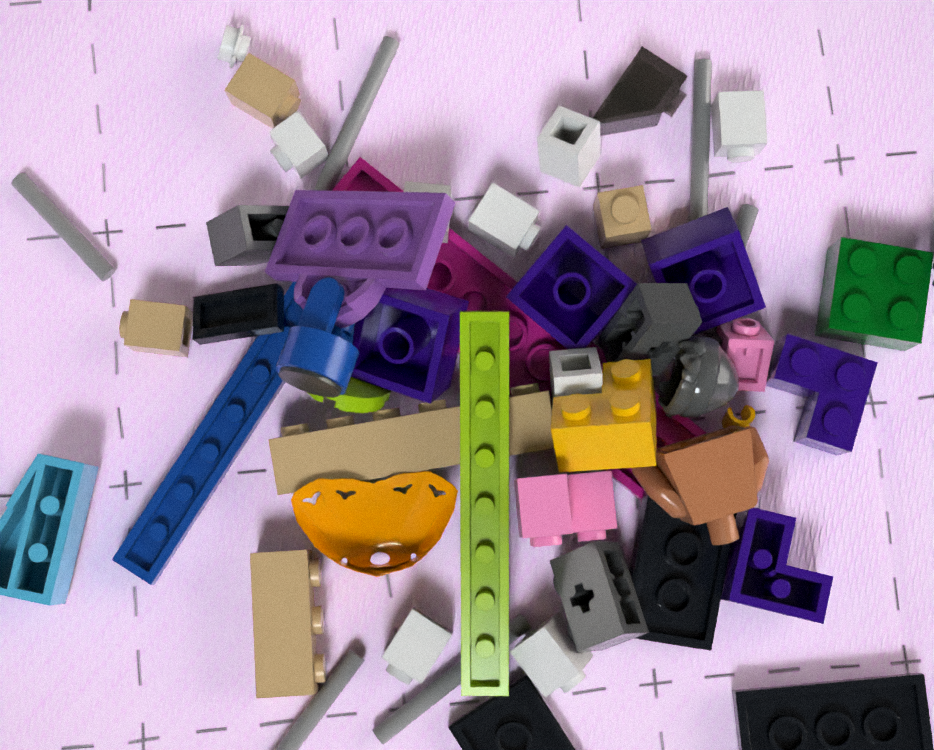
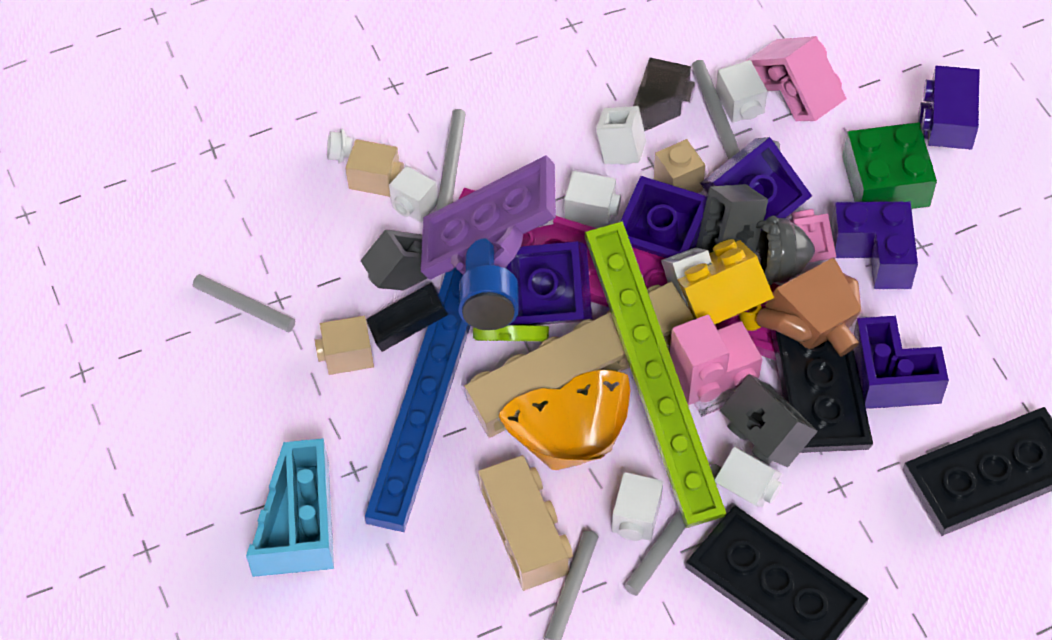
camera: 15 degrees left, 25 degrees down
(817, 130) = (802, 74): none -> bright pink brick

